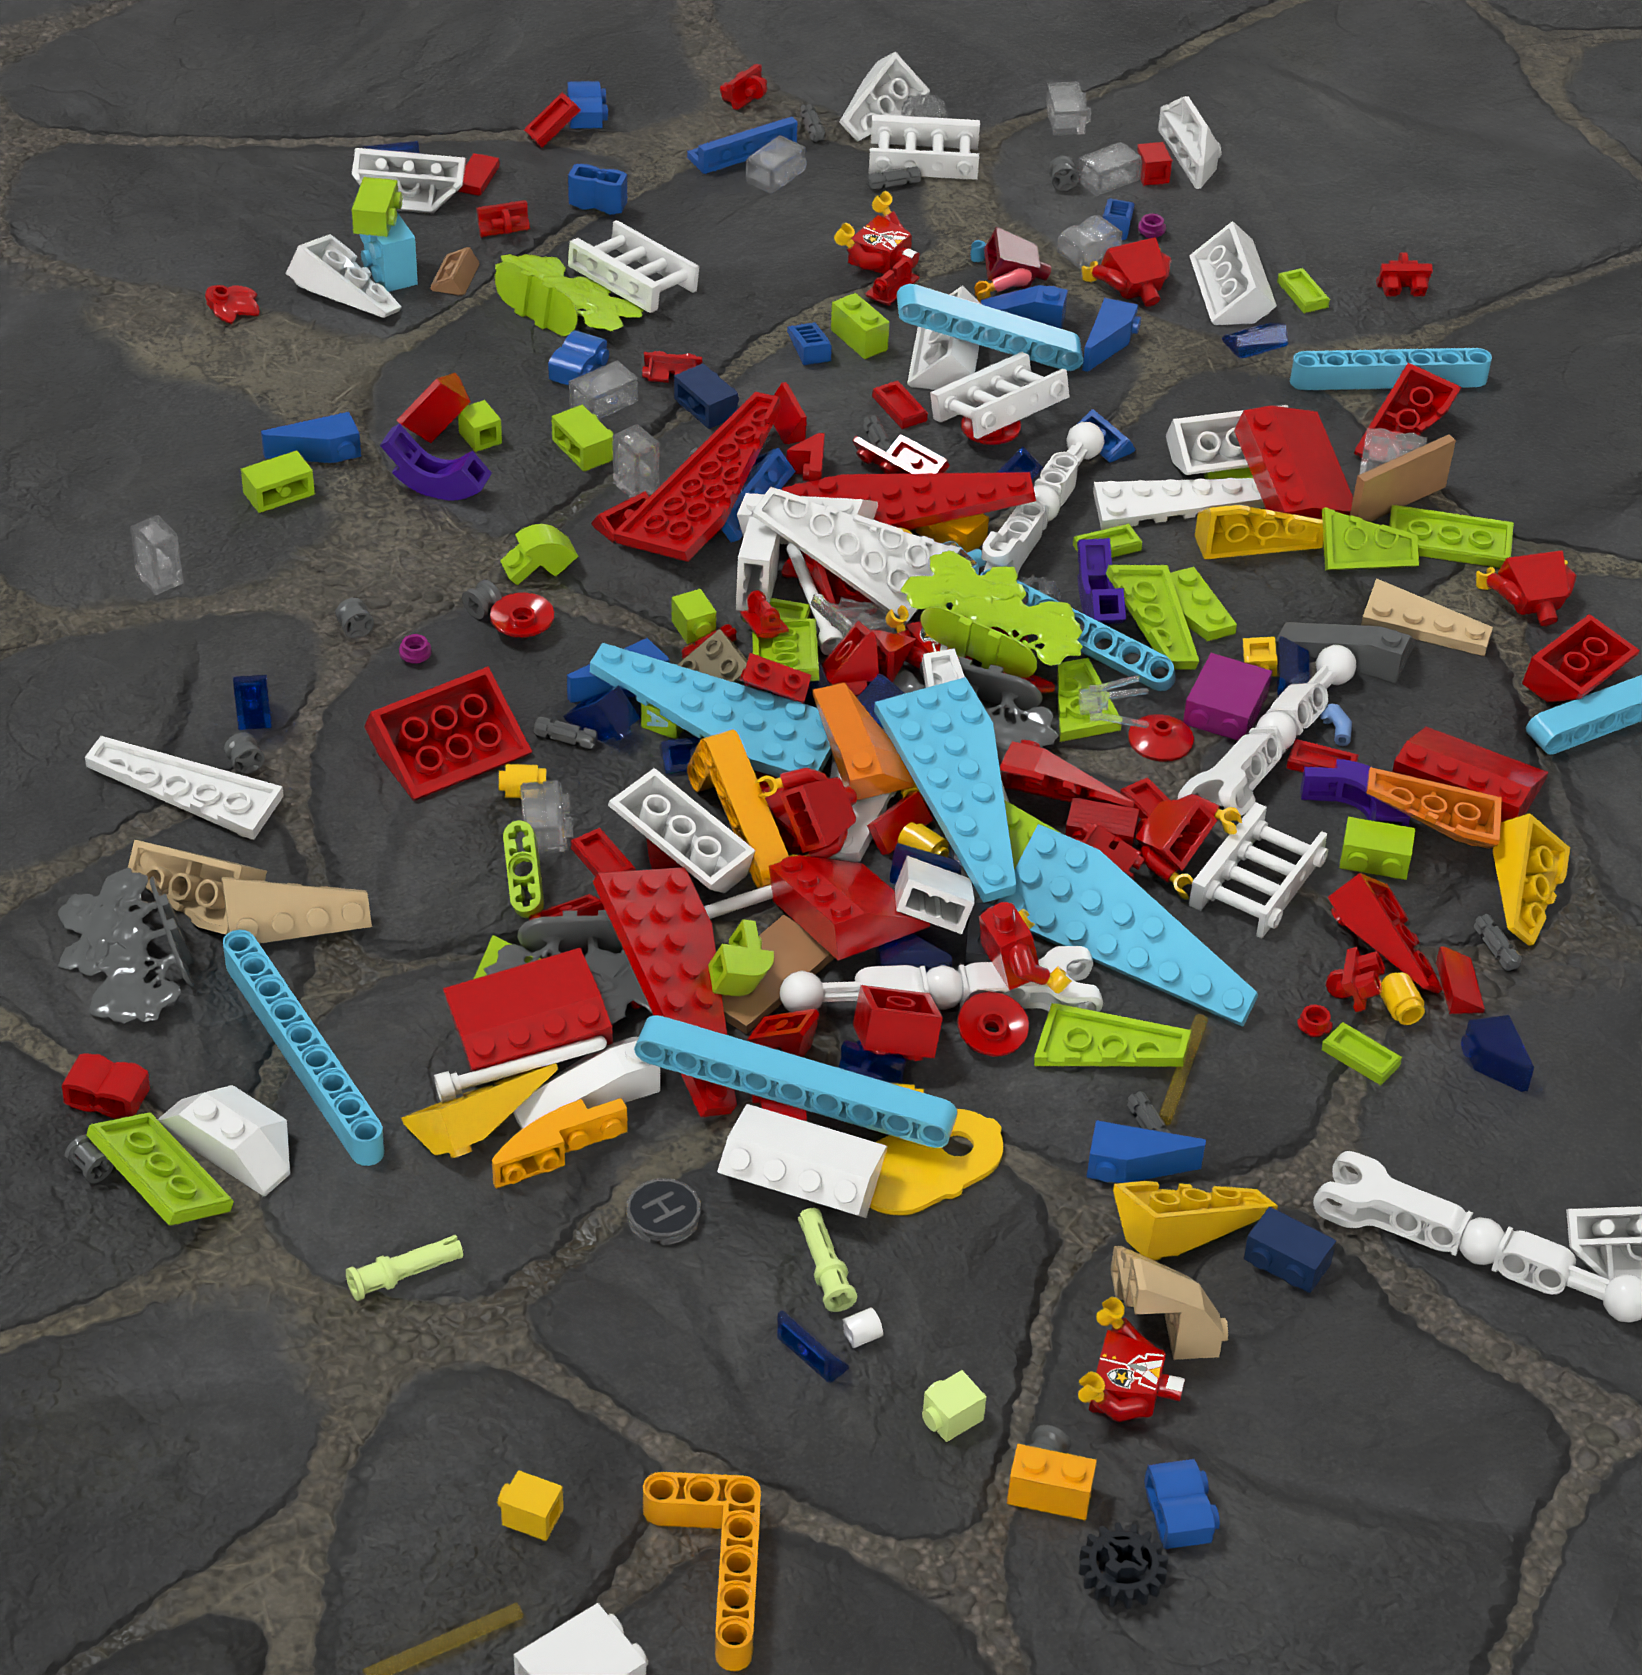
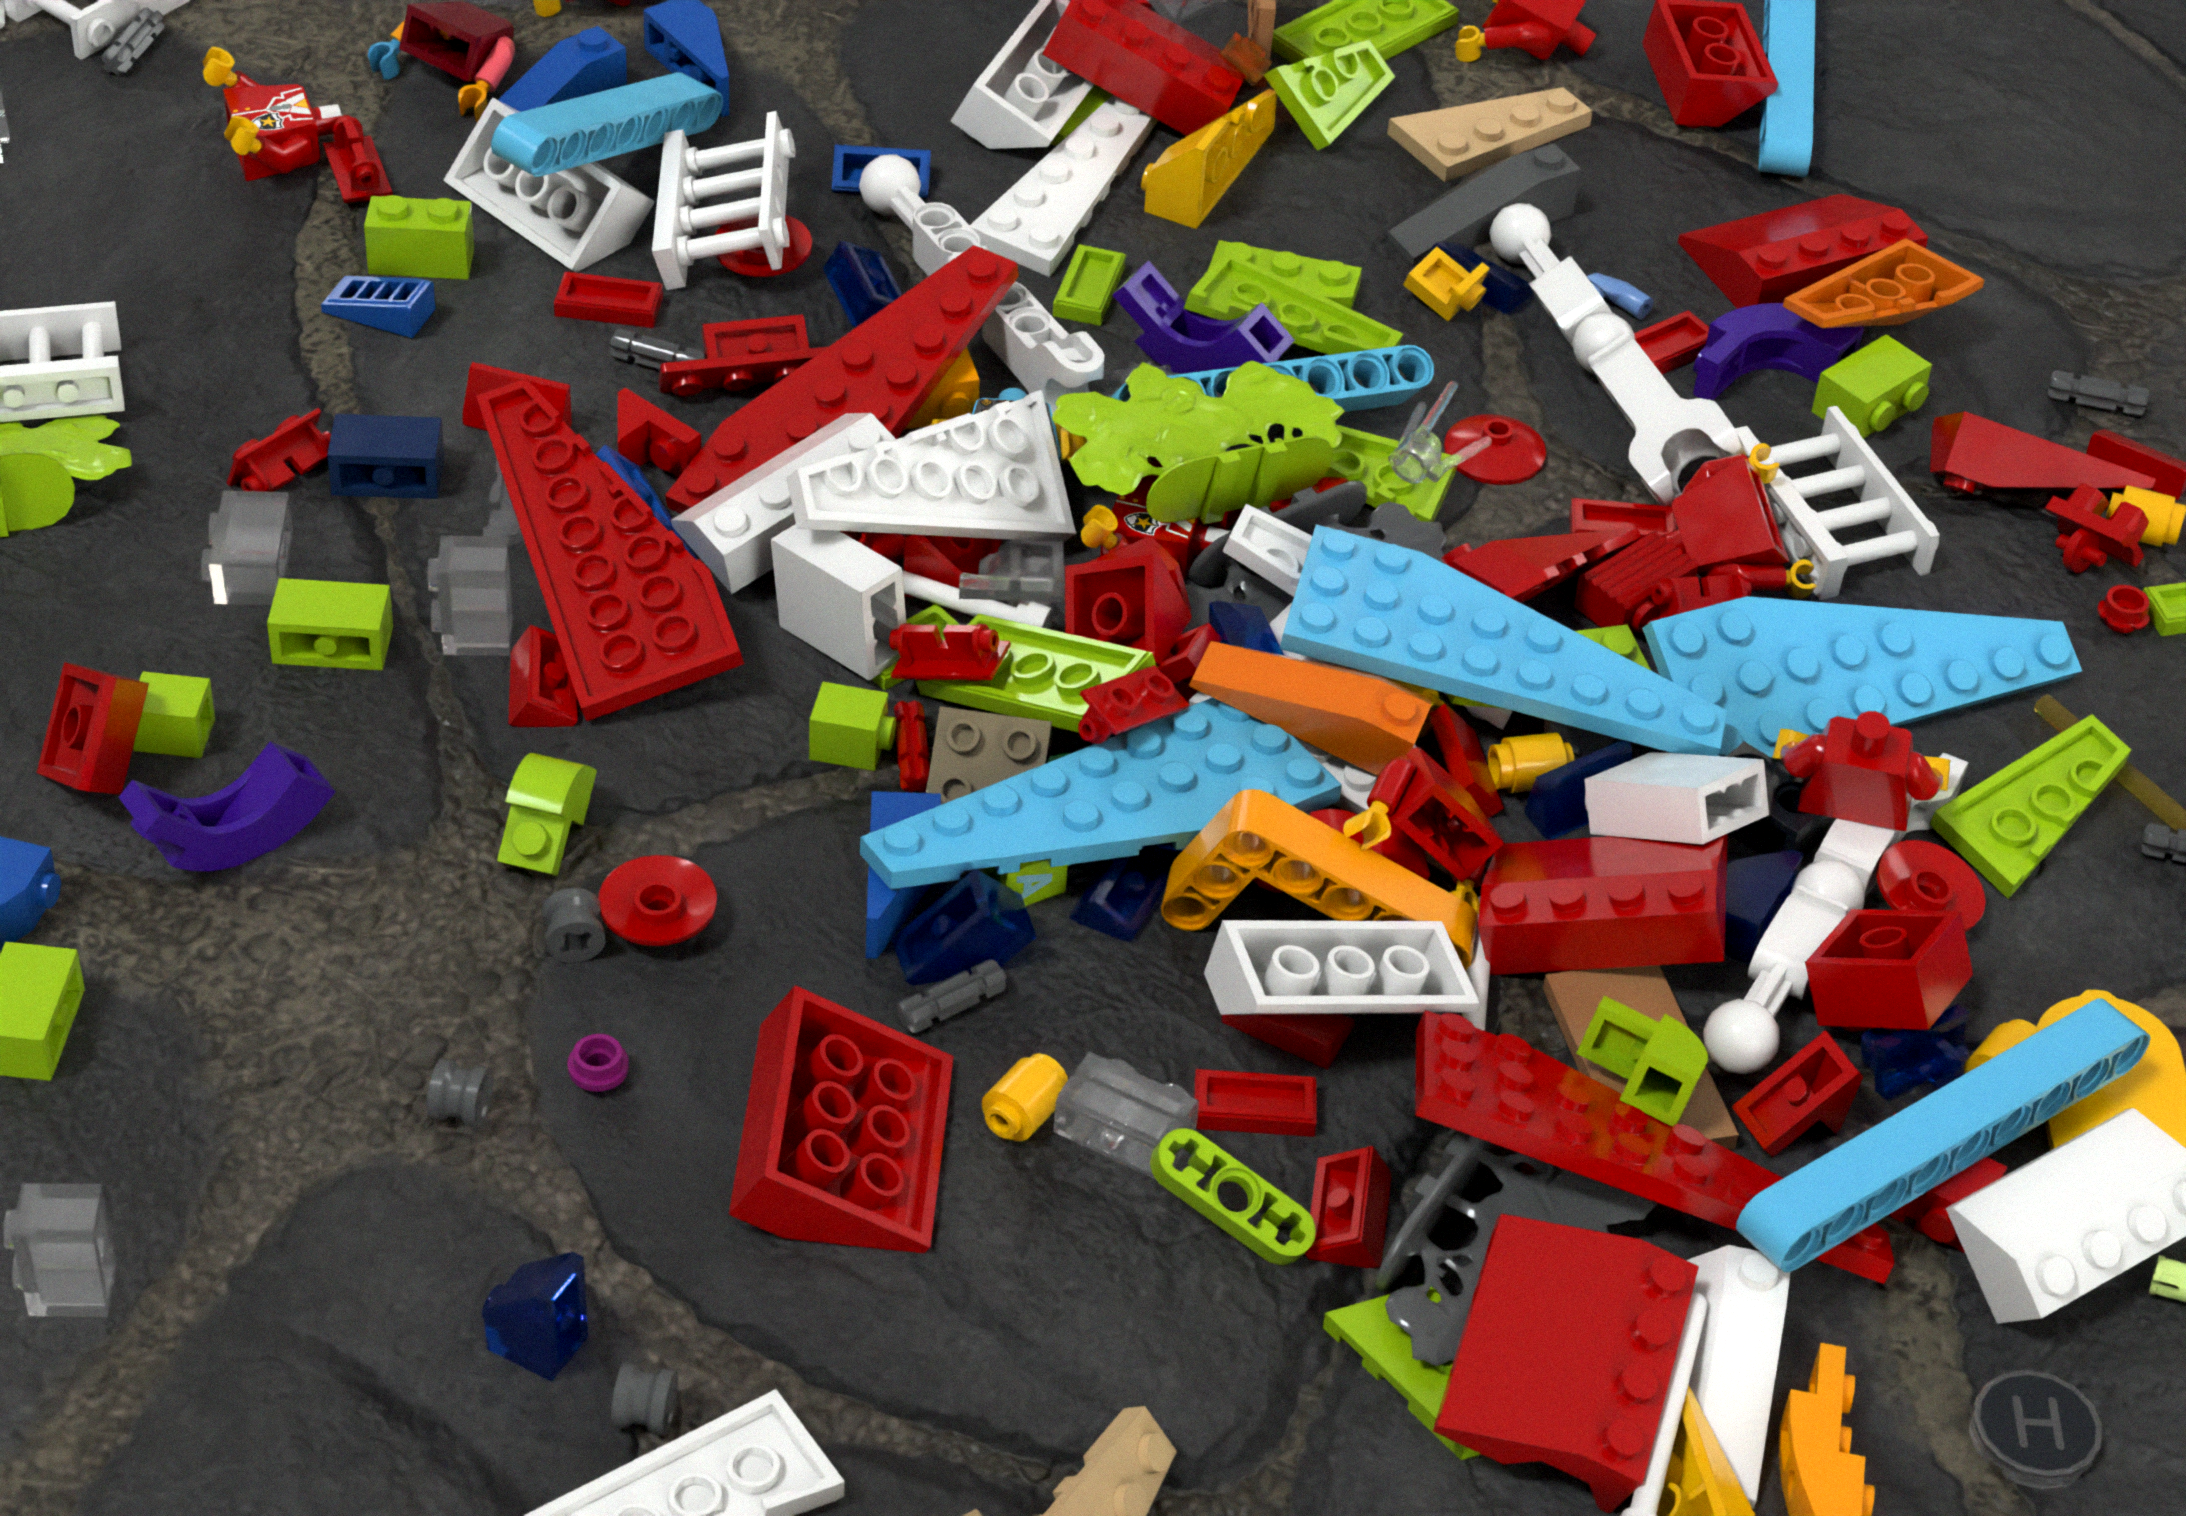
camera: 55 degrees left, 0 degrees up
(577, 357) = (148, 533): blue brick -> none
(1227, 697) = (1494, 349): magenta brick -> none
(1324, 494) = (1245, 58): none -> clear orange slope
(1528, 869) = (2017, 307): yellow wedge -> none

